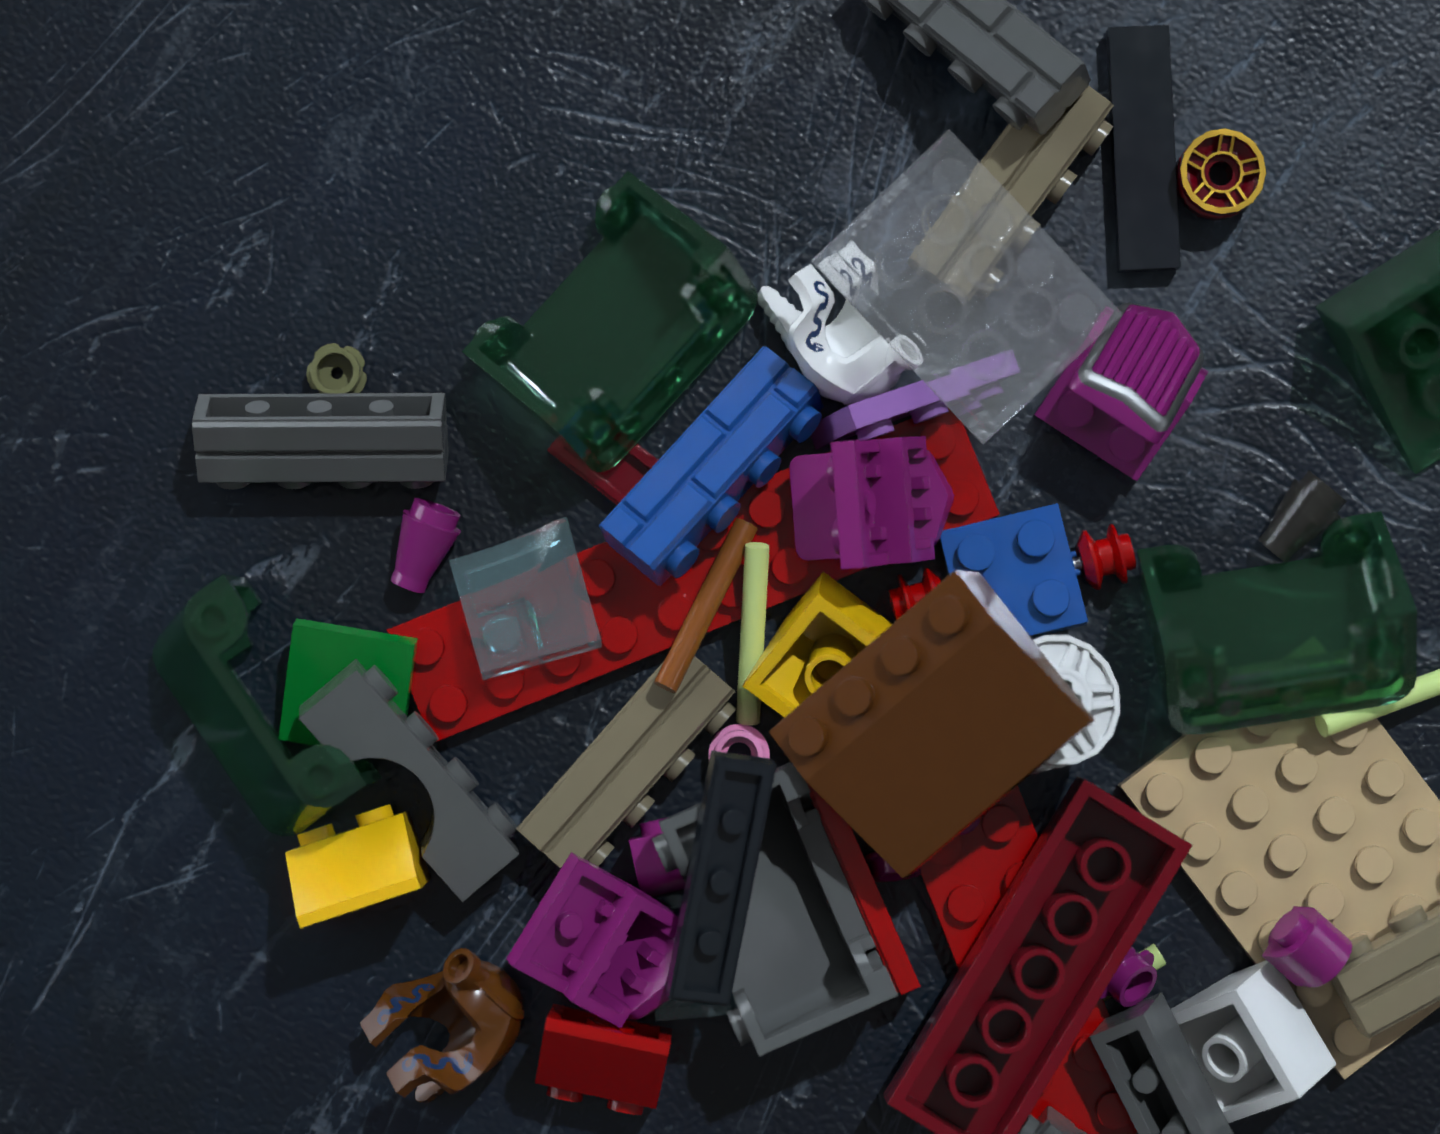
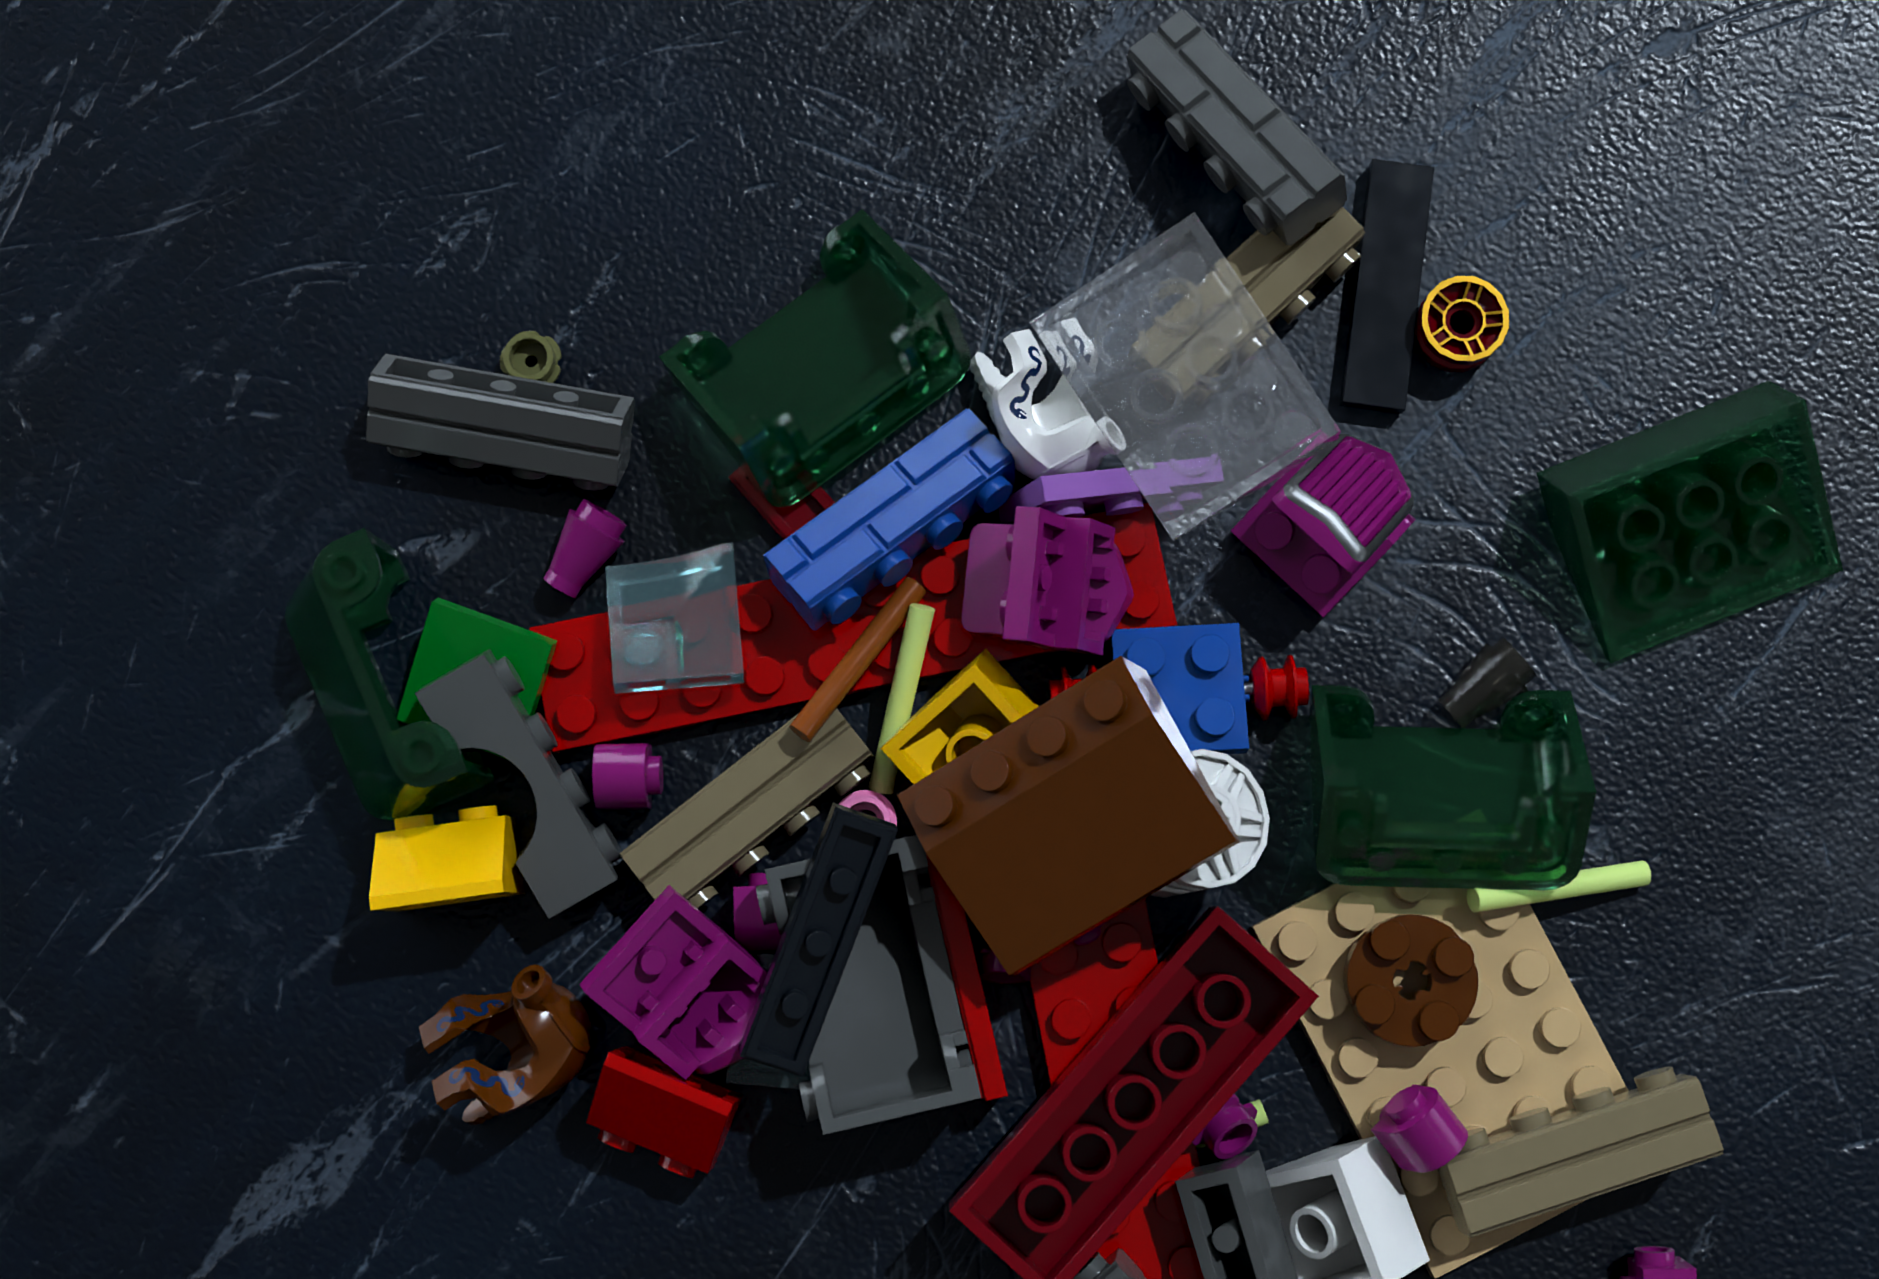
camera: 10 degrees right, 5 degrees down
(507, 754) = (626, 776): none -> magenta plate
(1302, 836) = (1432, 1012): none -> reddish brown plate

